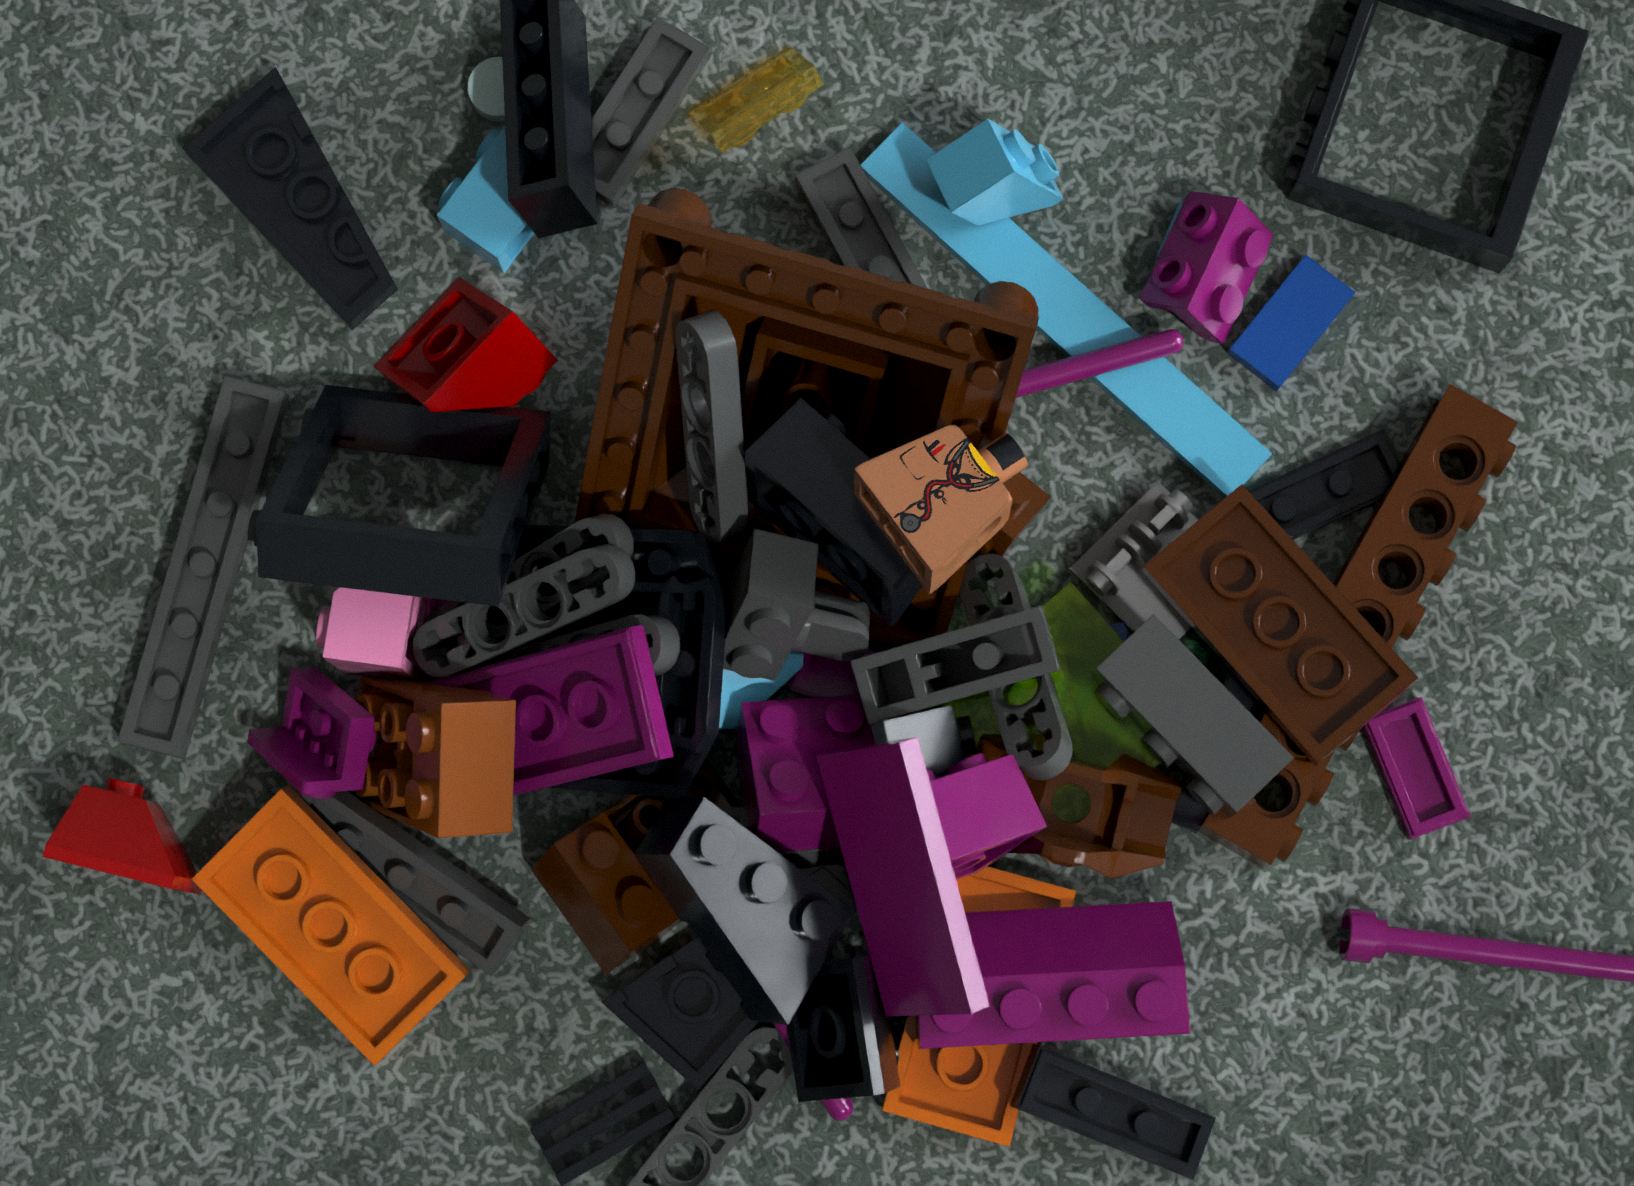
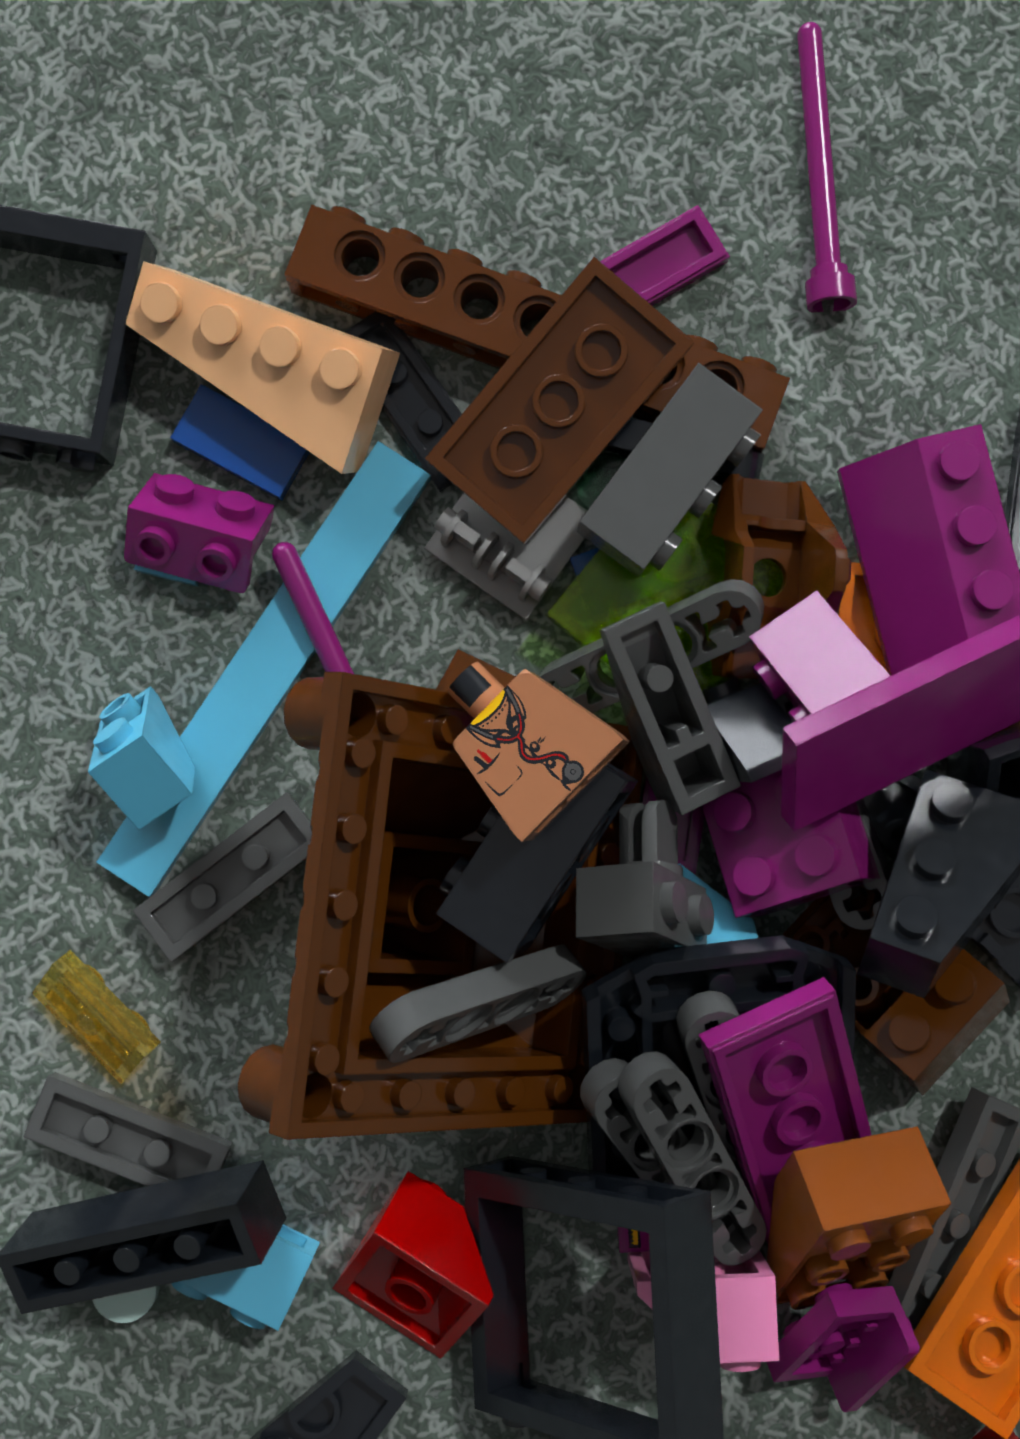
camera: 105 degrees left, 5 degrees up
(1362, 364) = (281, 366): none -> light nougat wedge

